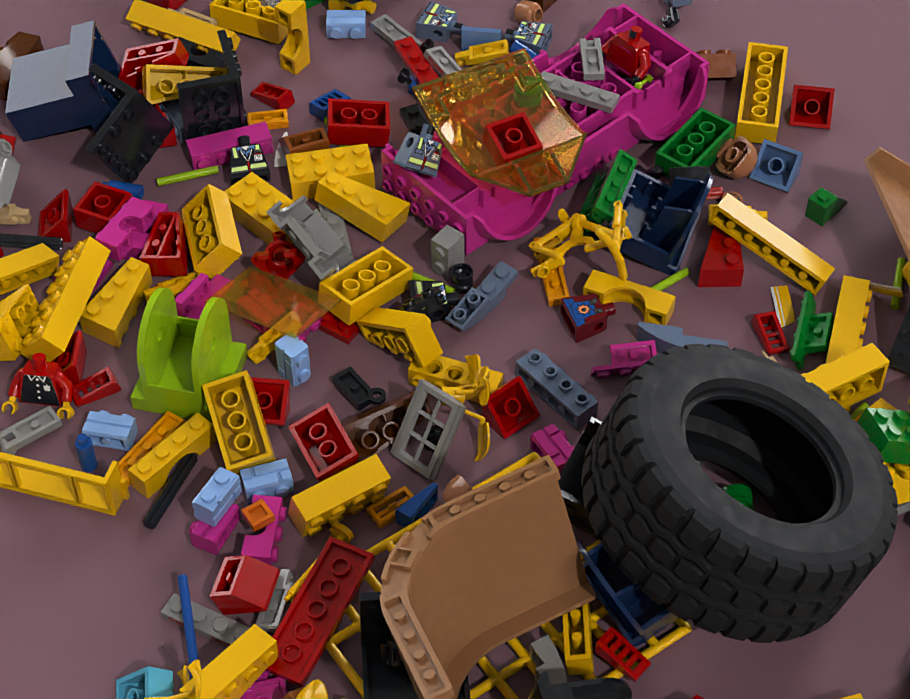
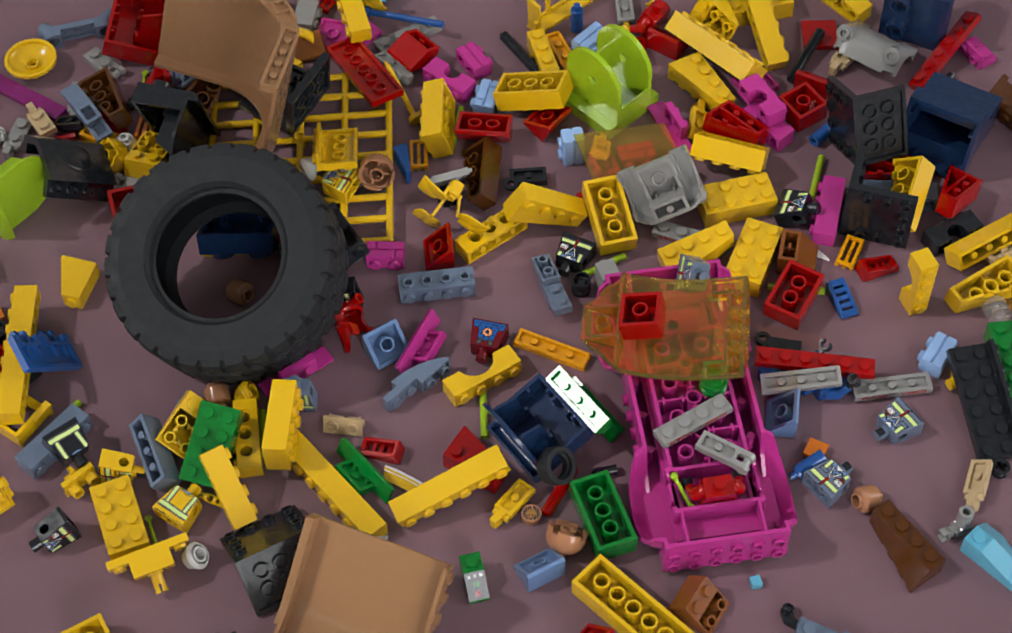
camera: 125 degrees right, 5 degrees up
(216, 496) = (481, 53): light blue brick -> none
(258, 515) = (455, 72): orange tile -> none
(428, 299) = (564, 234): black hinge -> none
(474, 36) = (857, 445): medium blue slope -> none
(482, 52) = (829, 432): yellow hinge -> none
(574, 228) = (545, 338): yellow piece -> none

